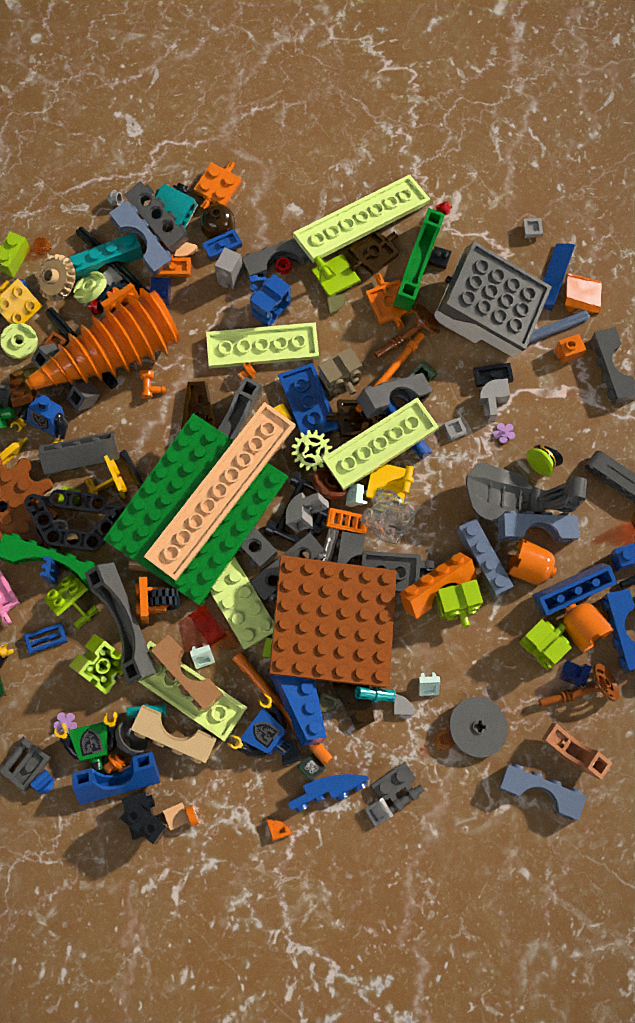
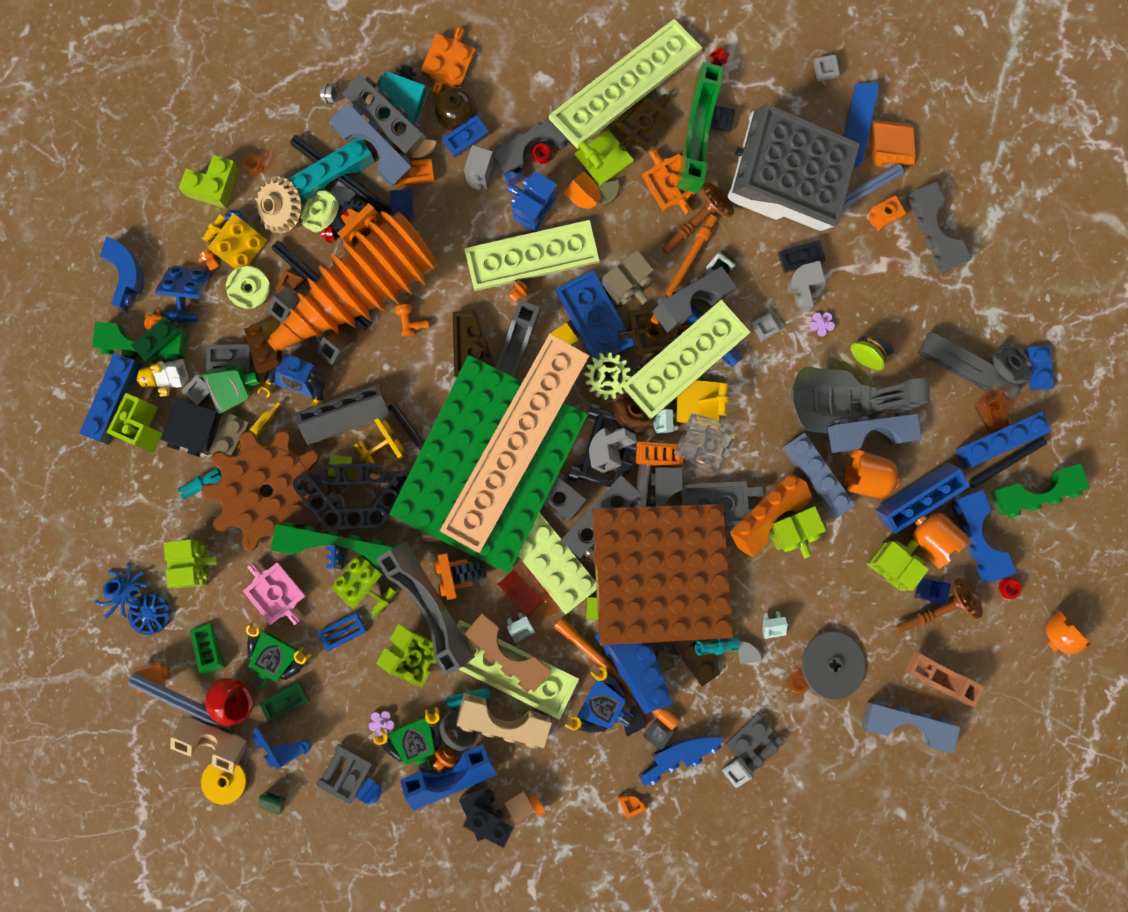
camera: 10 degrees left, 10 degrees up
(313, 299) = (583, 191): none -> orange brick

